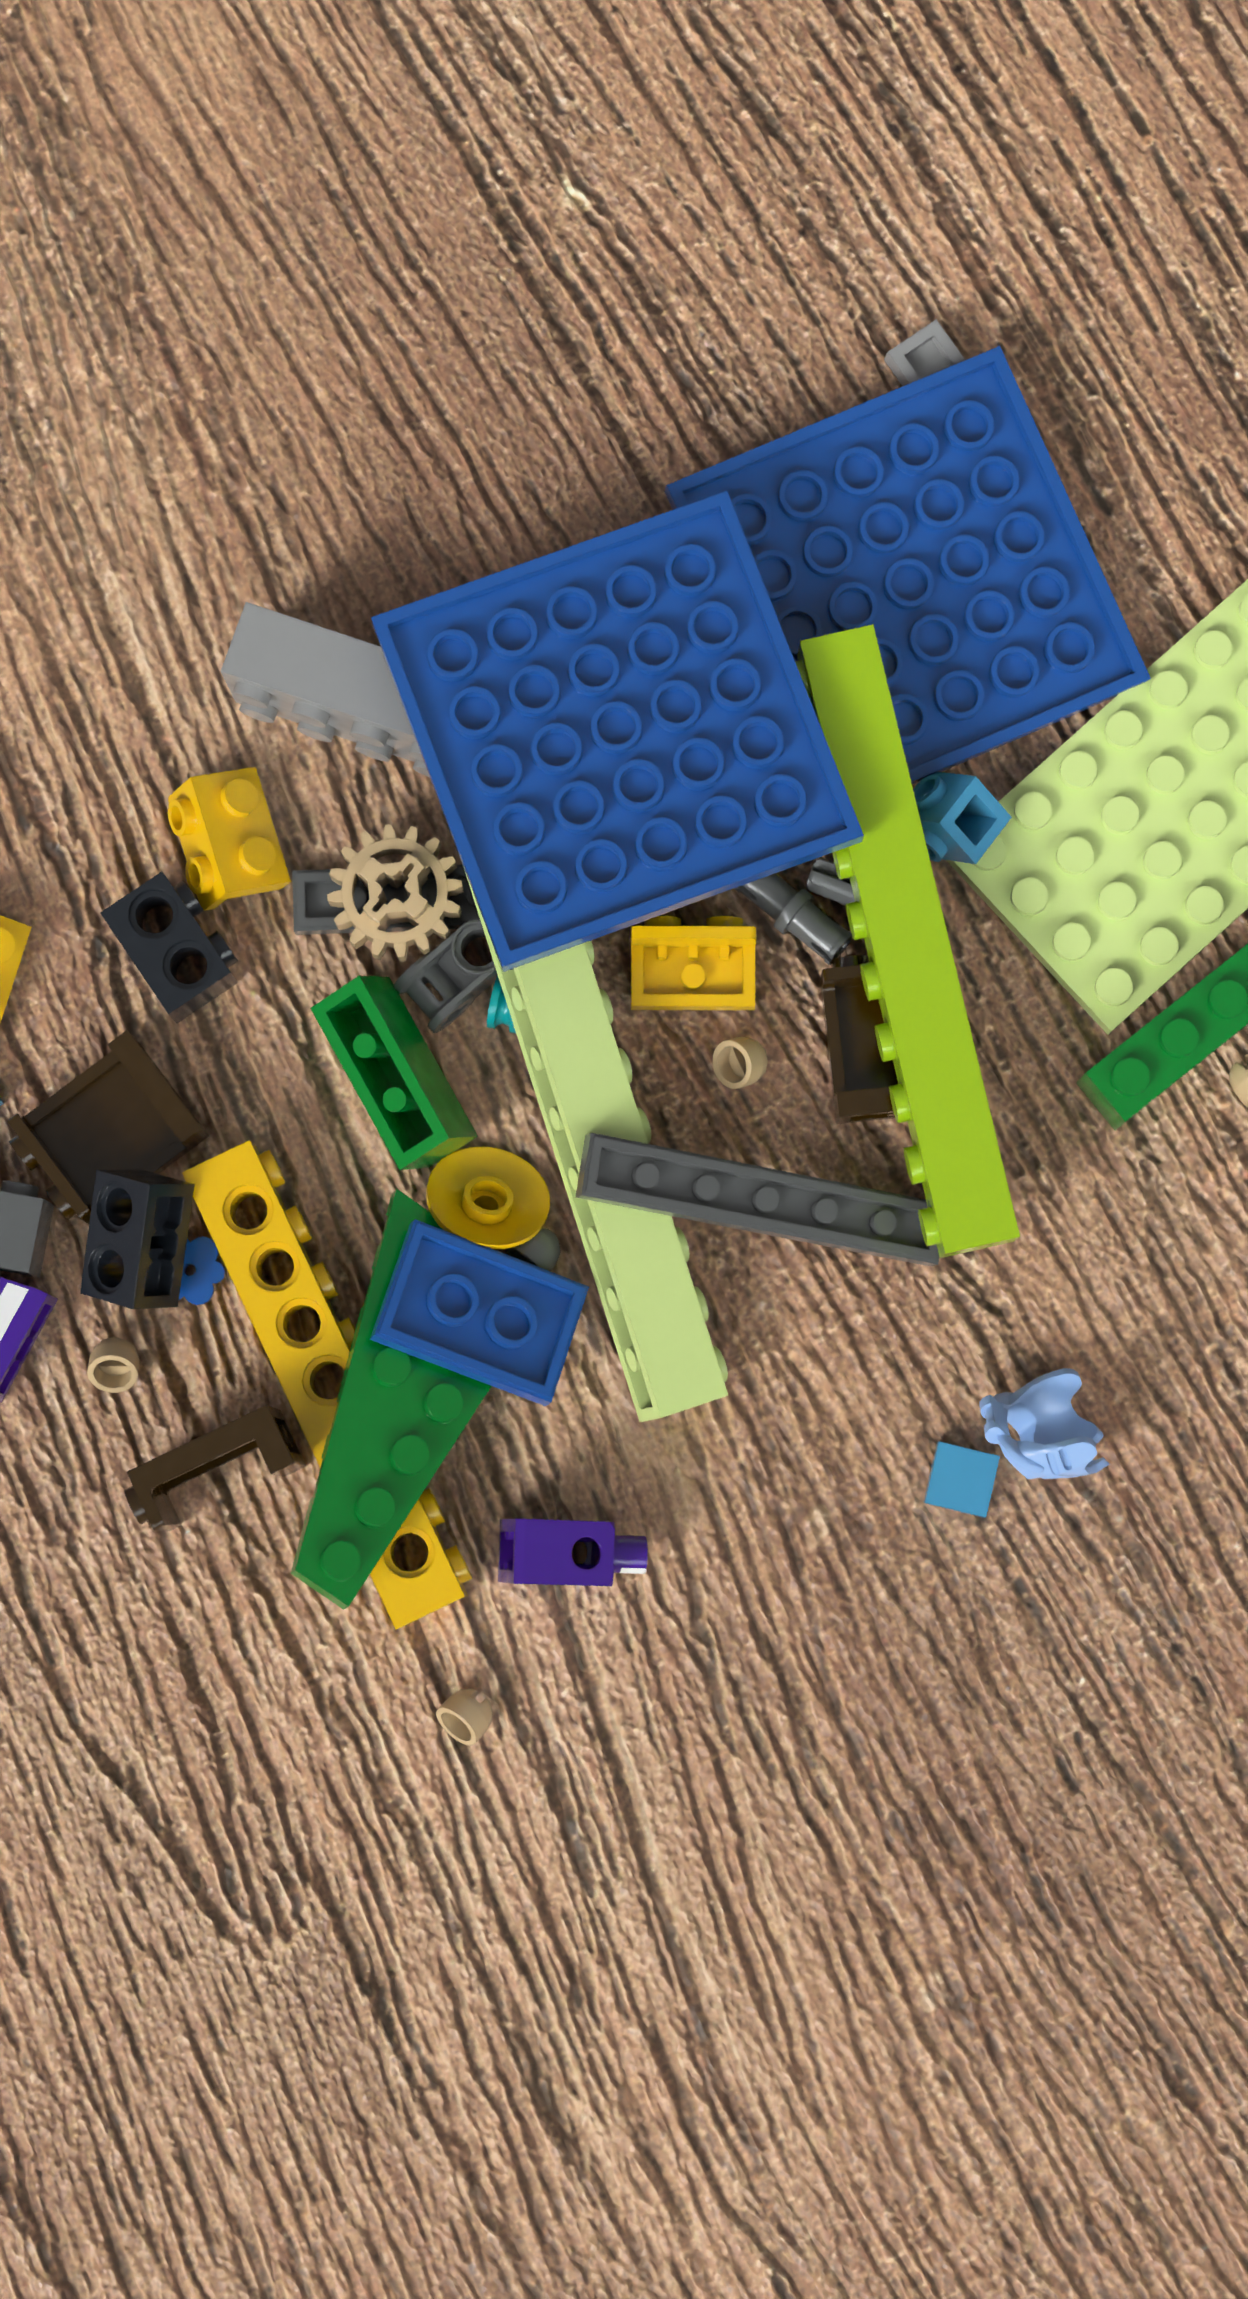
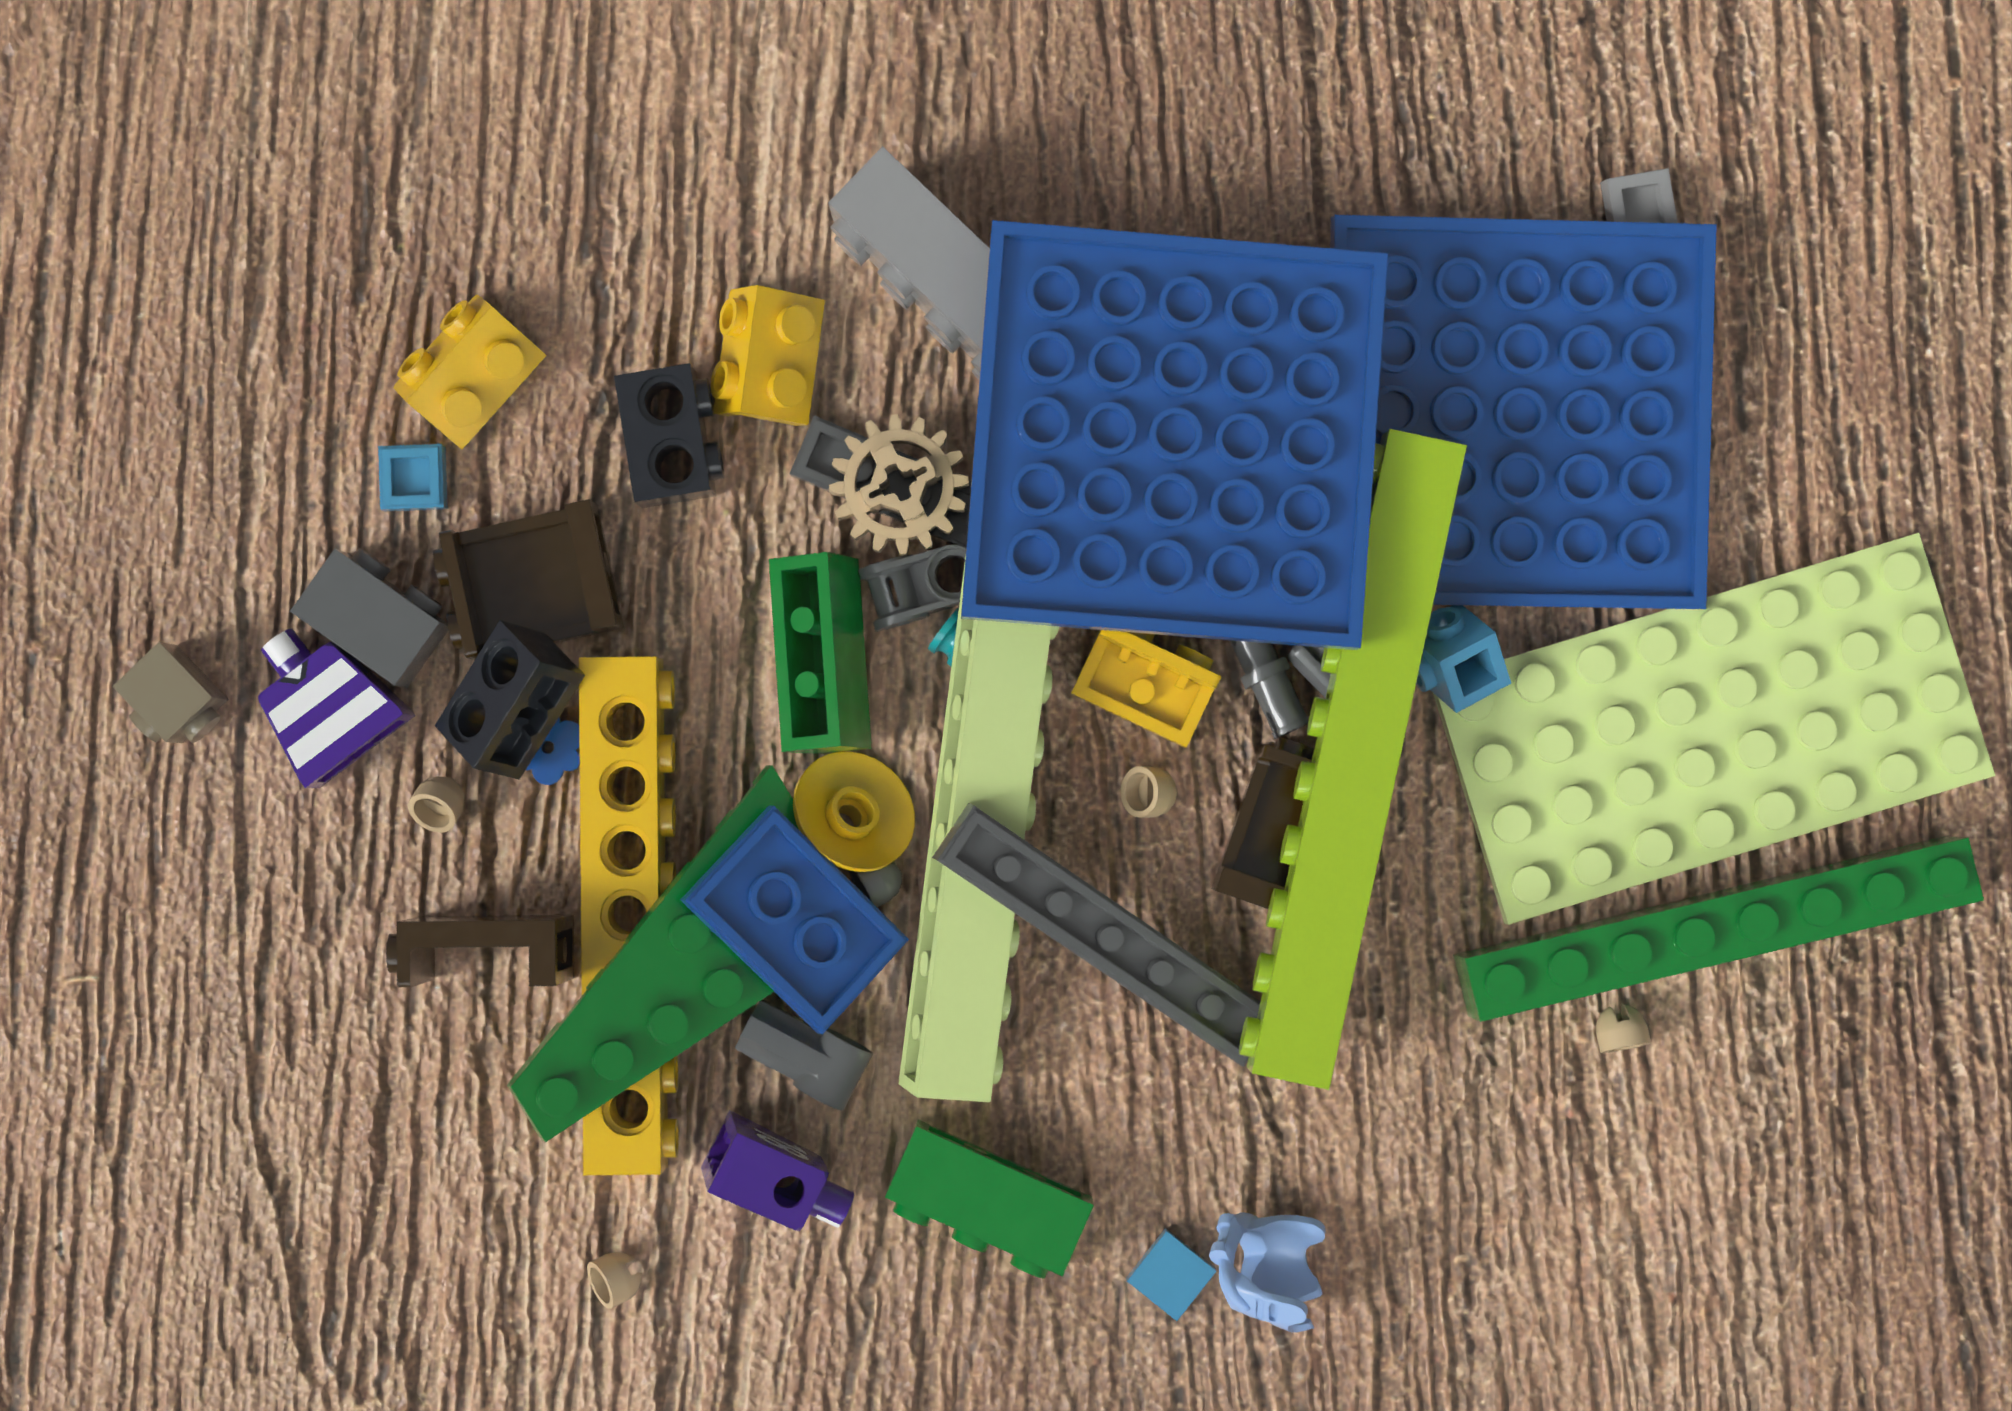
camera: 20 degrees right, 5 degrees up
(558, 1434) = (819, 1064): none -> dark grey piece
(768, 1487) = (988, 1200): none -> green brick

